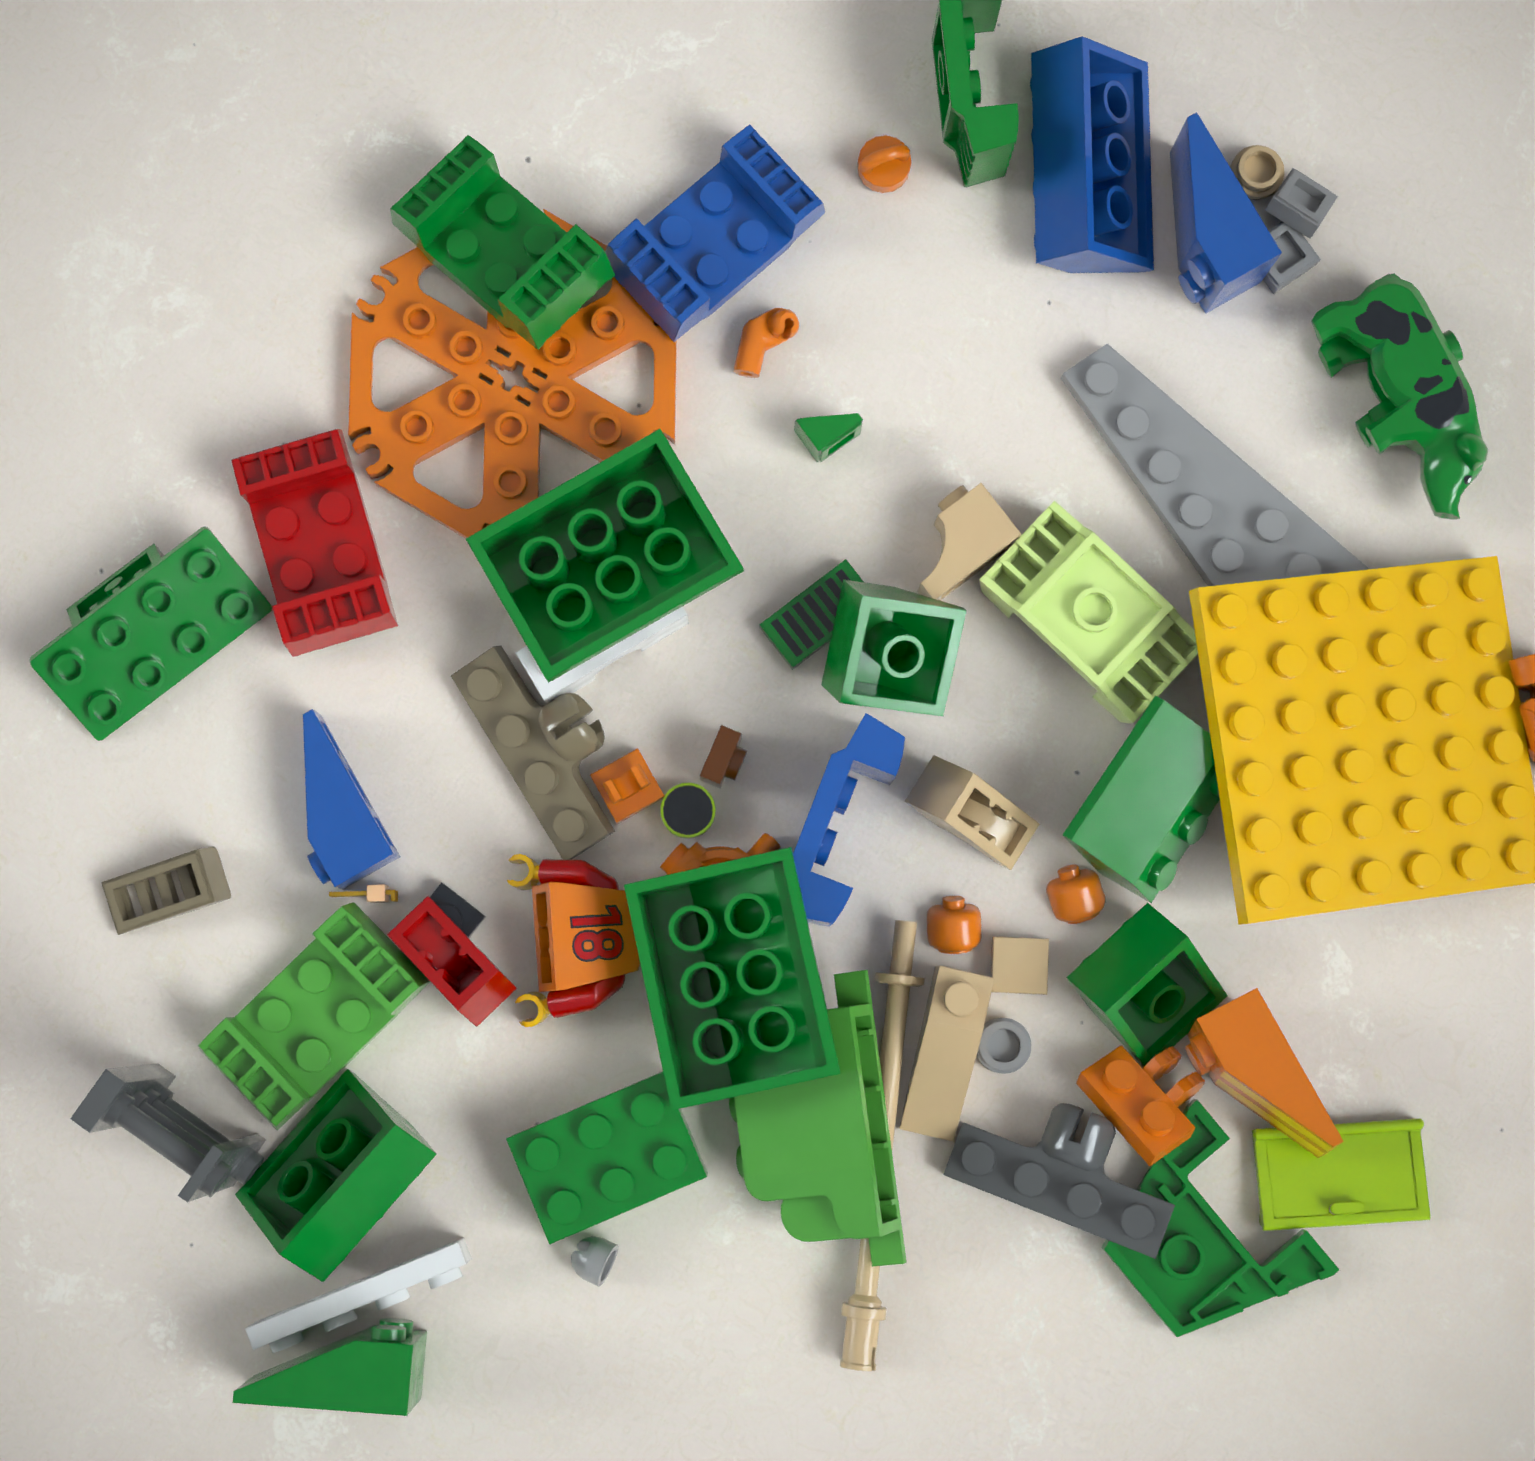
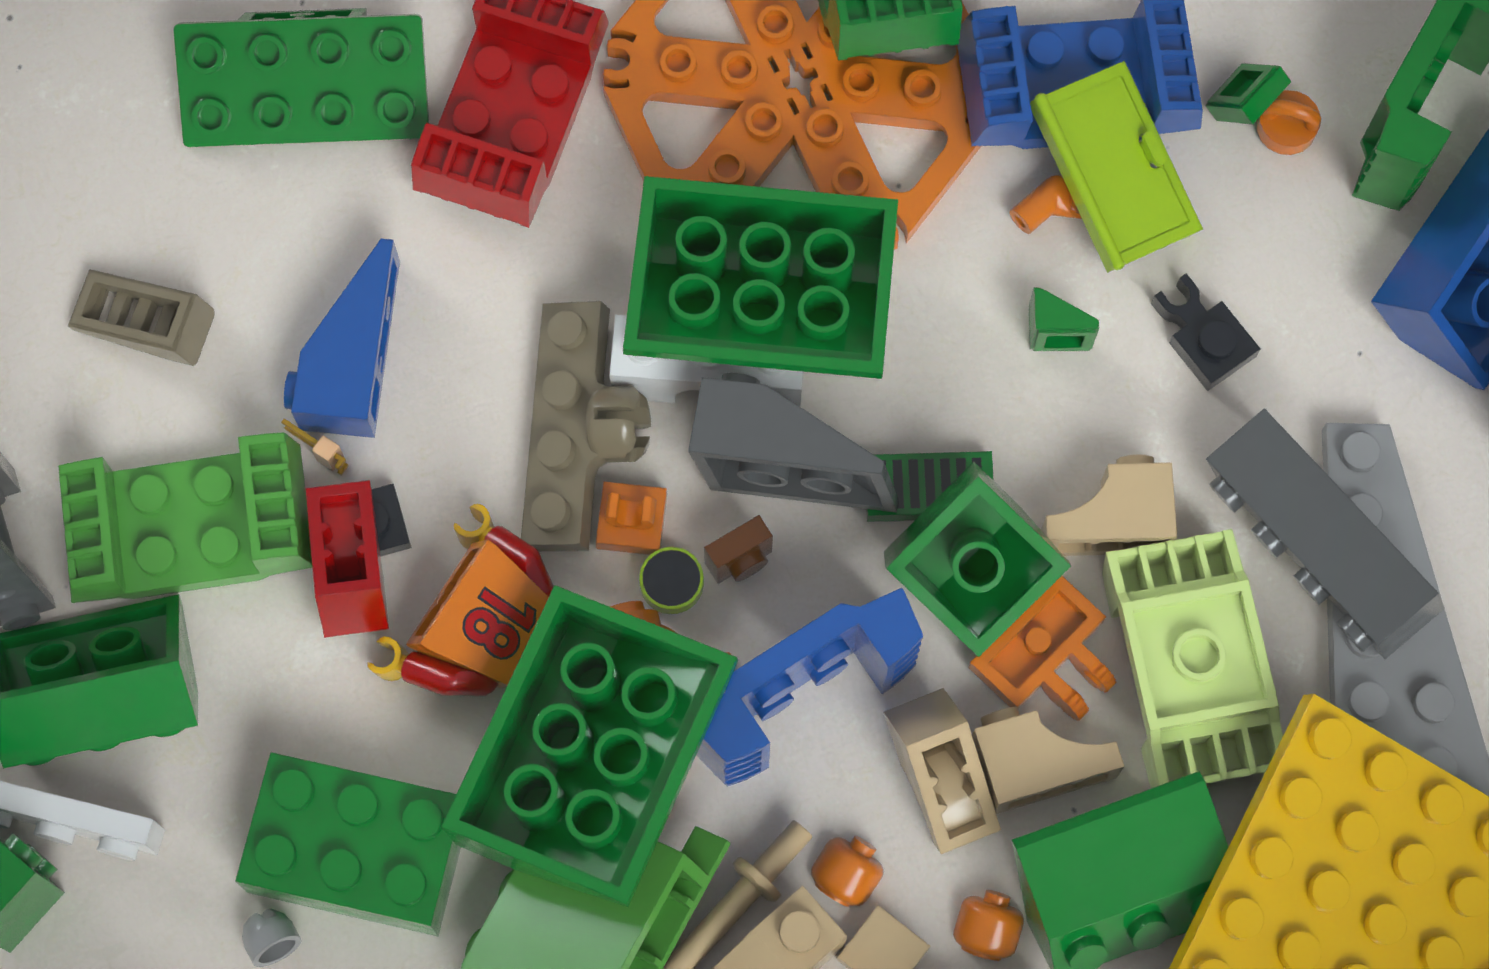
camera: 40 degrees right, 10 degrees down
(689, 671) = (769, 447): none -> dark grey slope
(783, 293) = (1097, 148): none -> lime door
(842, 163) = (1247, 93): none -> green tile
(940, 369) = (1210, 340): none -> black plate
(978, 675) = (1039, 644): none -> orange hinge
(1027, 765) = (1032, 764): none -> tan arch
(1119, 460) = (1324, 535): none -> dark grey brick

